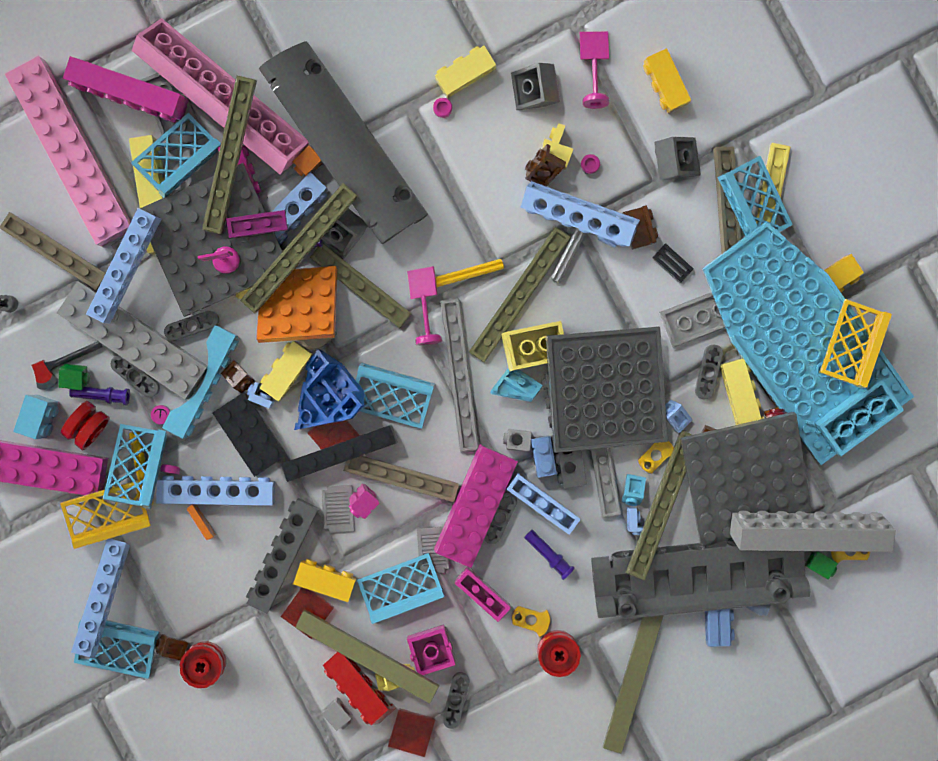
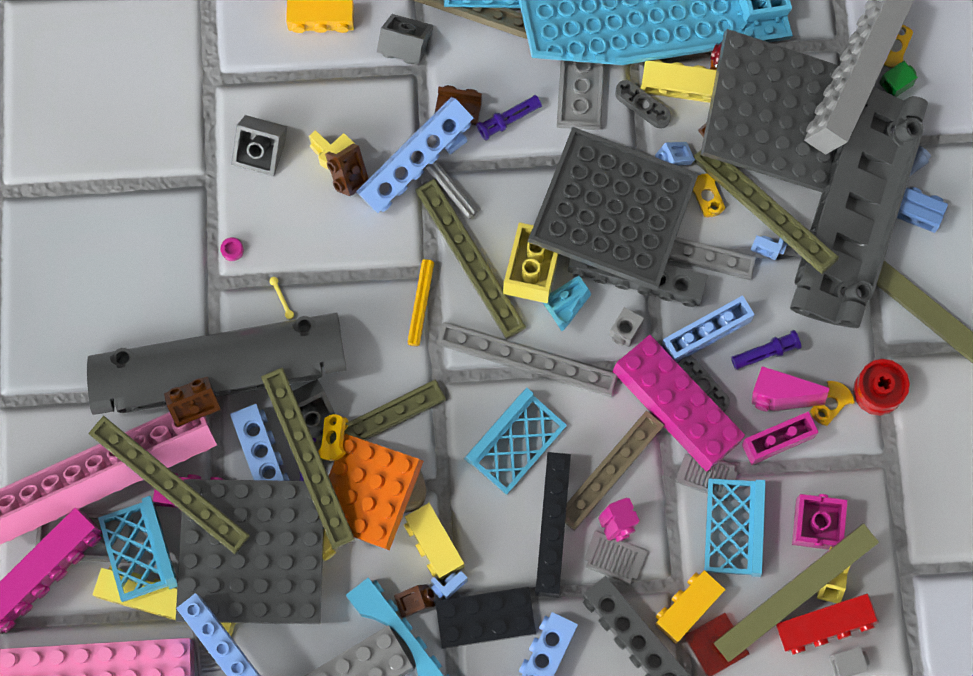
camera: 60 degrees left, 15 degrees down
(176, 325) = (329, 608): dark grey beam -> none
(224, 259) = (280, 542): dark pink piece -> none
(257, 224) = (258, 490): magenta plate -> none
(300, 139) = (191, 401): none -> reddish brown bracket
(307, 162) = (220, 420): orange brick -> none
(316, 258) = (335, 450): none -> yellow piece
(328, 393) = (481, 506): blue wedge -> none
(332, 433) = (524, 523): clear red plate -> none
(411, 177) = (288, 314): none -> light yellow hinge
(411, 732) = (904, 590): clear red plate -> none
(421, 285) = (410, 351): dark pink piece -> none
(464, 687) = (898, 540): dark grey beam -> none
(465, 71) = (206, 207): light yellow brick -> none
(517, 576) = (782, 392): none -> dark pink slope
(543, 456) = (657, 308): medium blue brick -> none
(590, 164) = (367, 127): dark pink tile -> none
(593, 47) = (249, 69): dark pink piece -> none
(633, 490) = (736, 232): medium azure bracket -> none
(641, 266) = (498, 119): none -> dark purple pin
(684, 273) = (510, 82): black tile -> none

